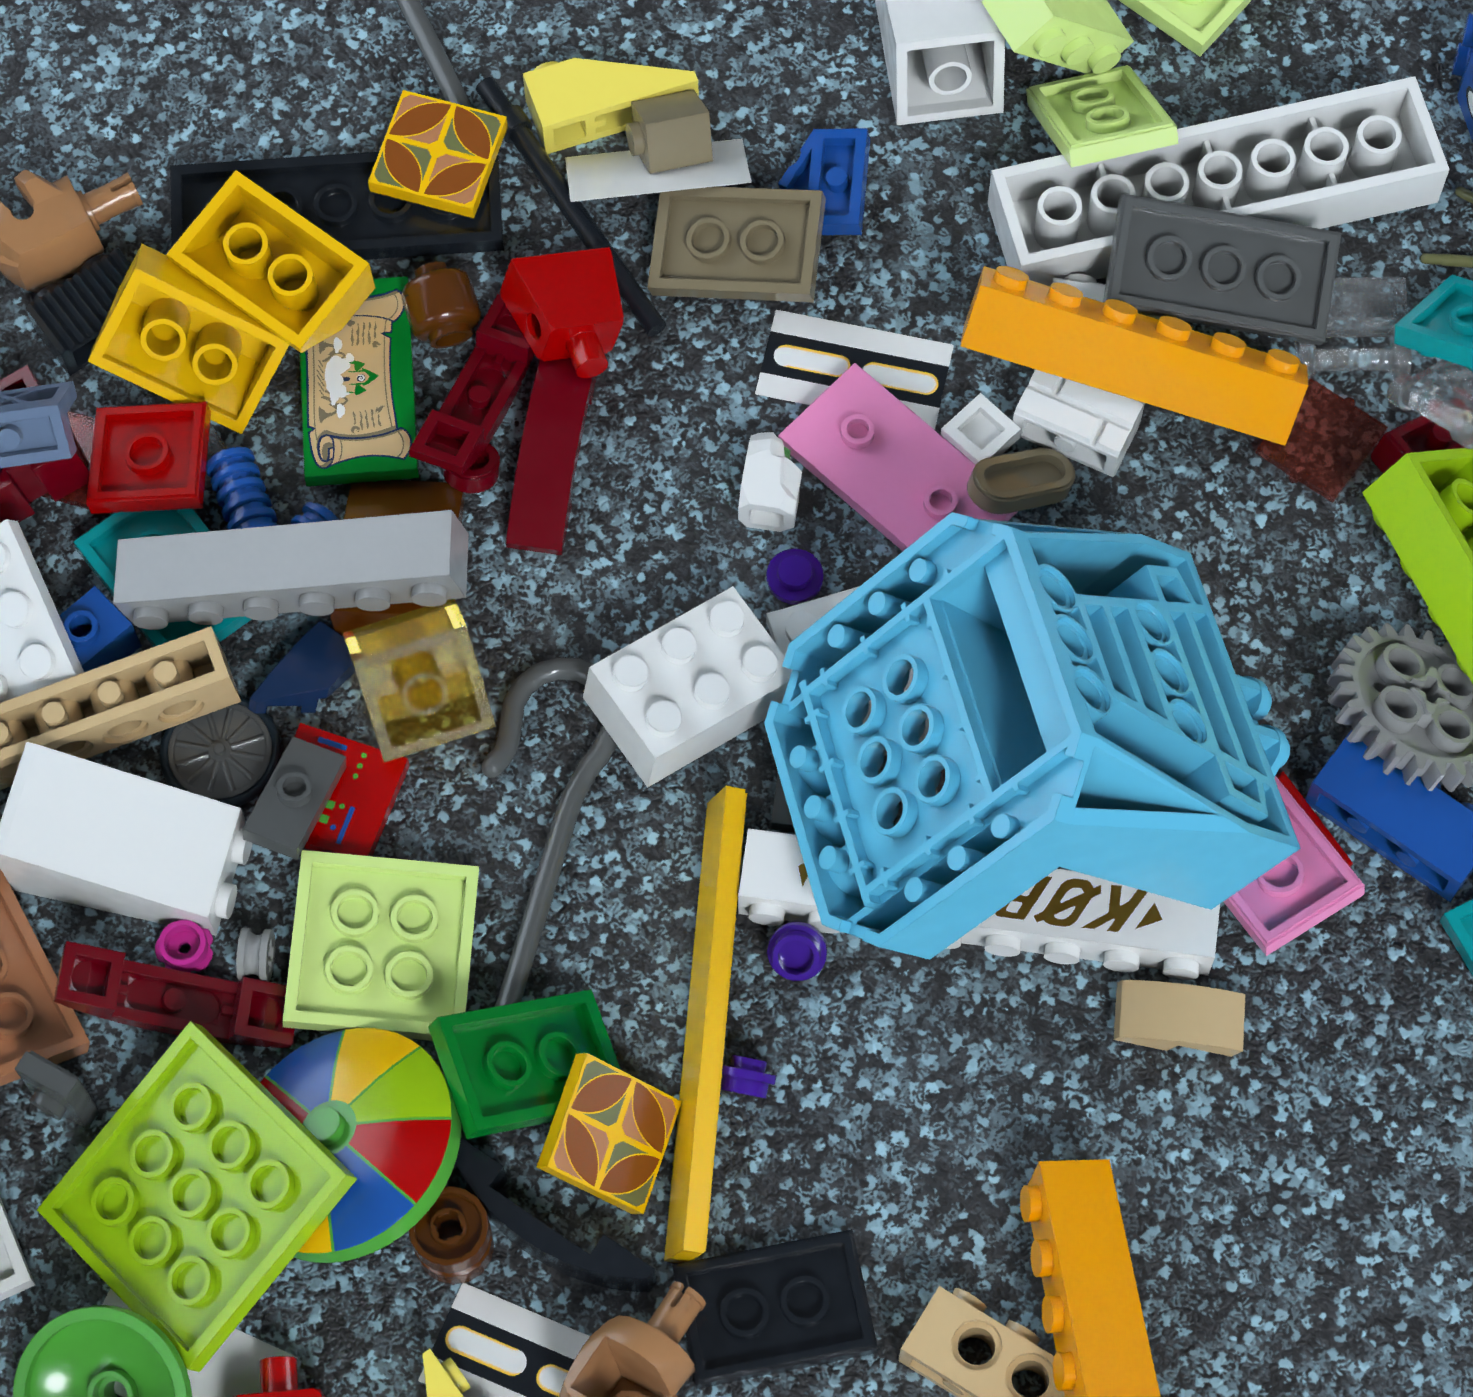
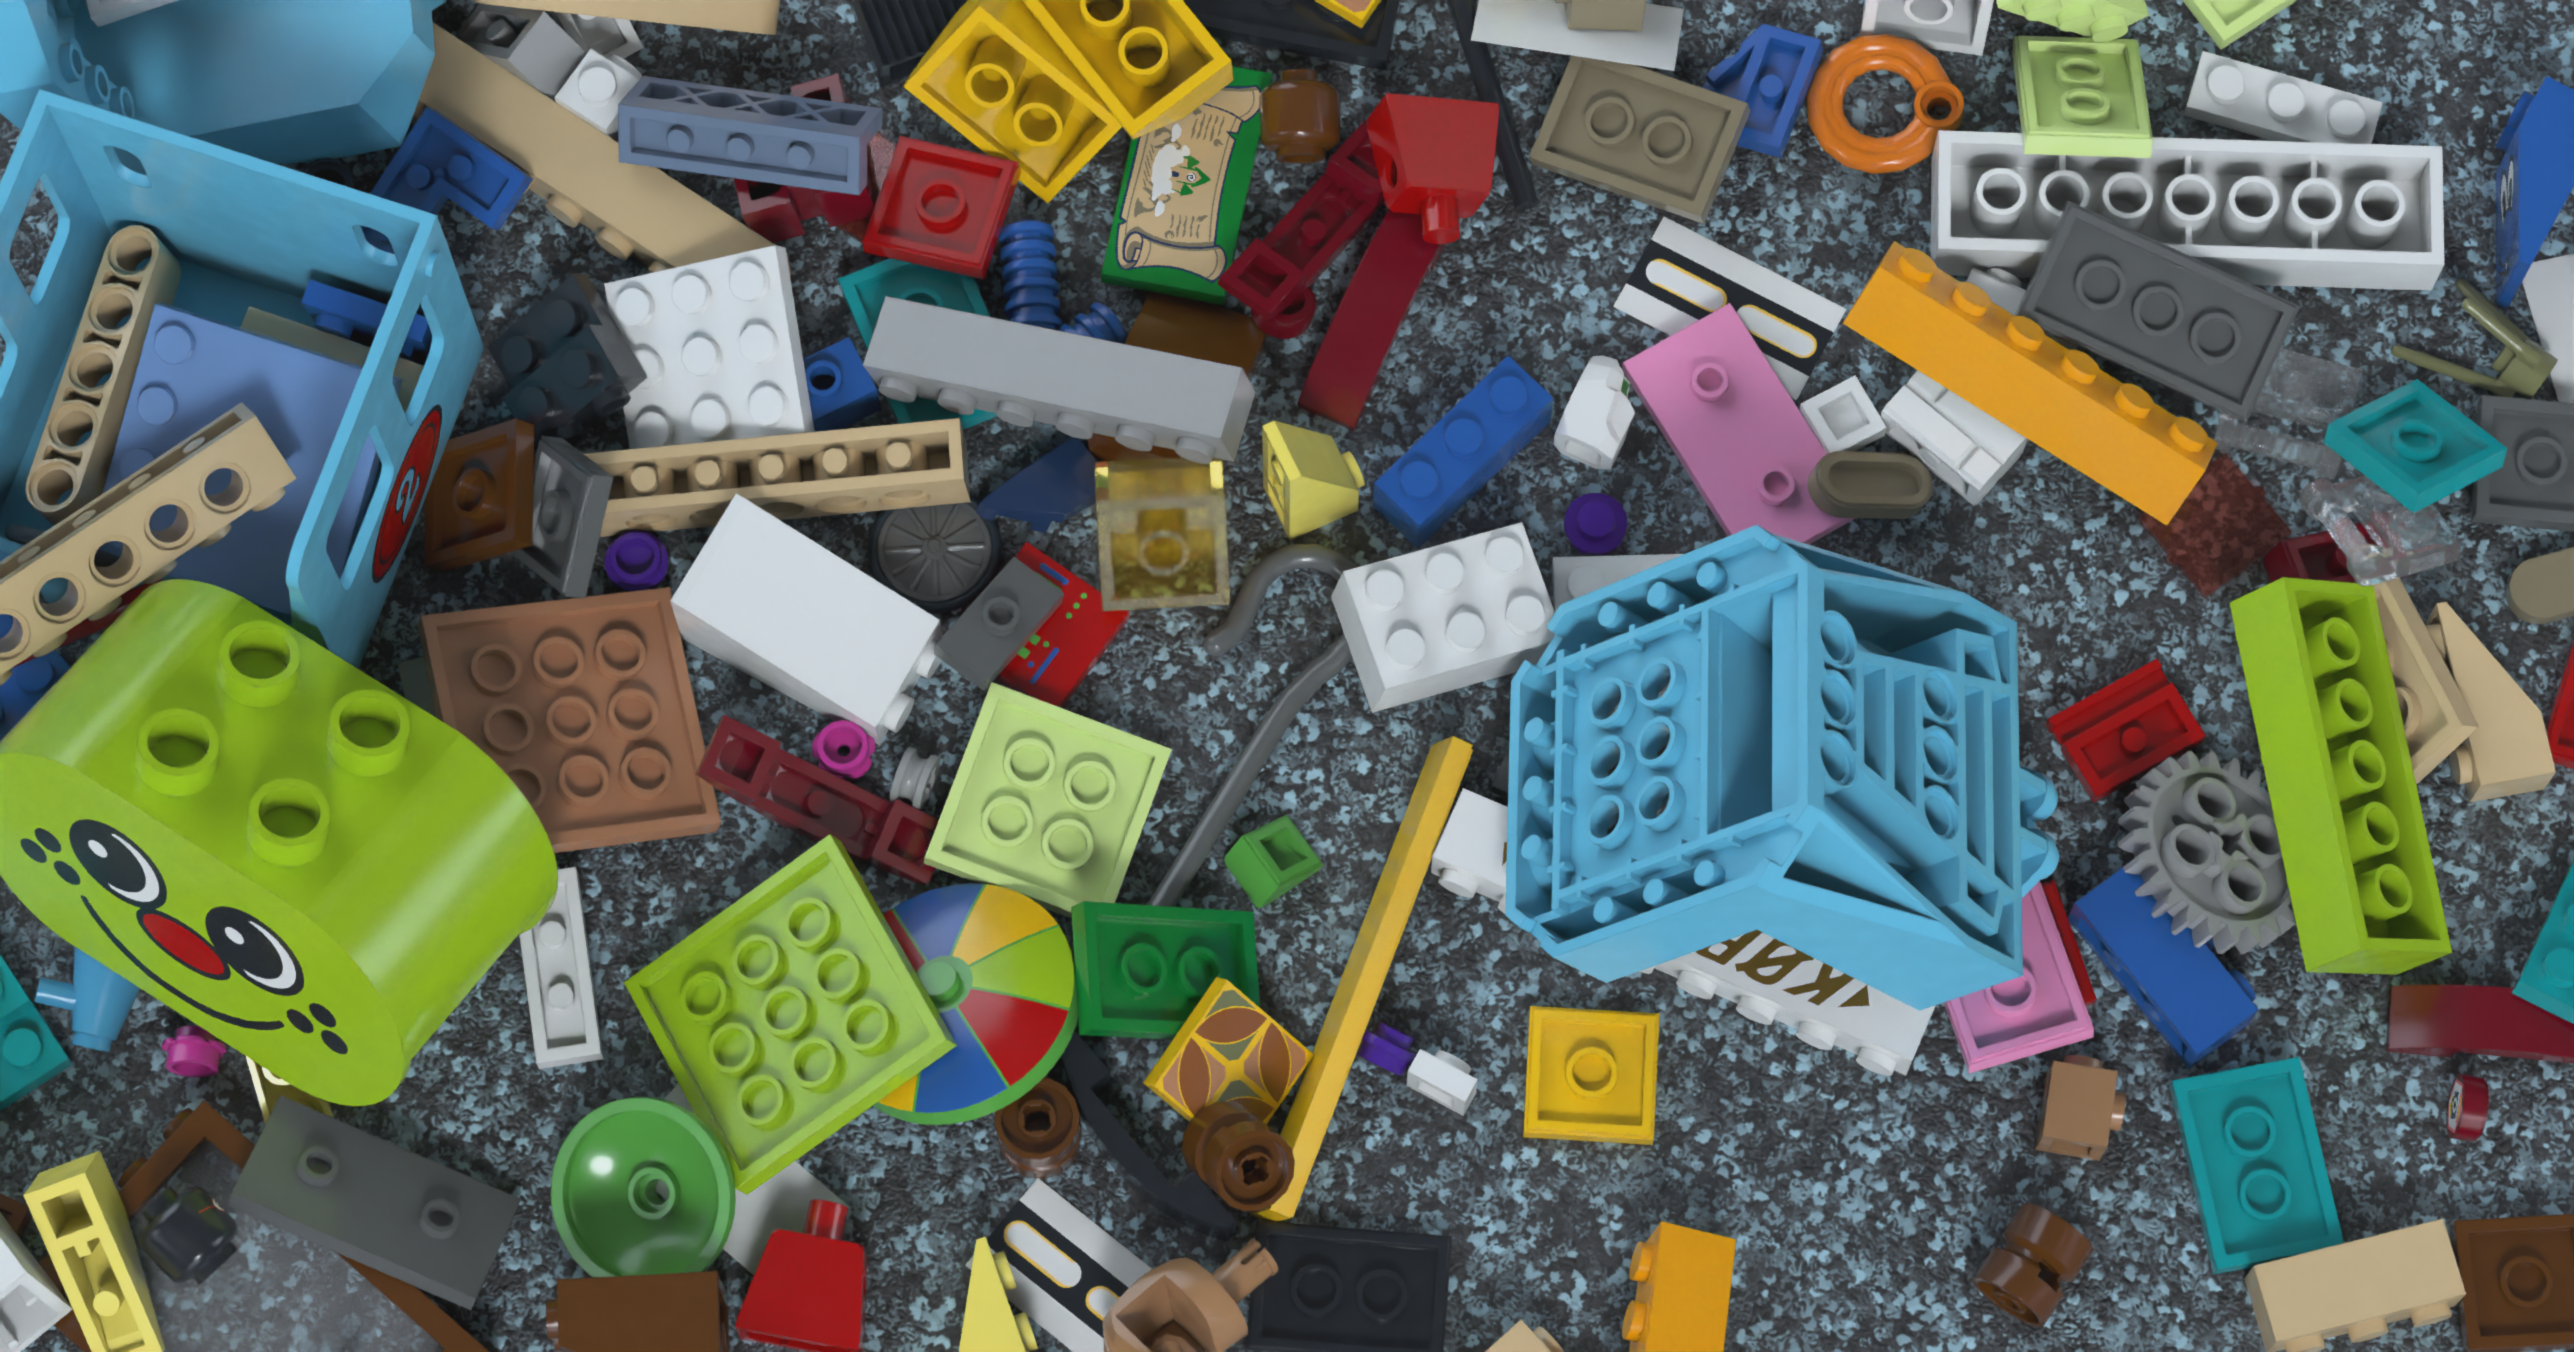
camera: 15 degrees right, 5 degrees up
(56, 1090) = (675, 866): dark grey plate -> none
(532, 600) = (1307, 478): none -> light yellow slope
(594, 941) = (1271, 861): none -> bright green slope
(641, 1209) = (1238, 1155): none -> reddish brown wheel
(662, 544) = (1462, 452): none -> blue brick
(797, 951) = (1479, 931): dark purple plate -> none
(803, 1091) = (1443, 1079): none -> white plate
(932, 128) = (1891, 54): none -> orange piece
(933, 1051) = (1591, 1075): none -> yellow tile
(1179, 1015) = (1859, 1110): tan slope -> none
(1245, 87) = (2278, 104): none -> white plate
(1303, 628) = (2125, 730): none -> red plate
(1370, 960) = (2079, 1108): none -> medium nougat brick
(1376, 1106) = (2033, 1264): none -> reddish brown wheel

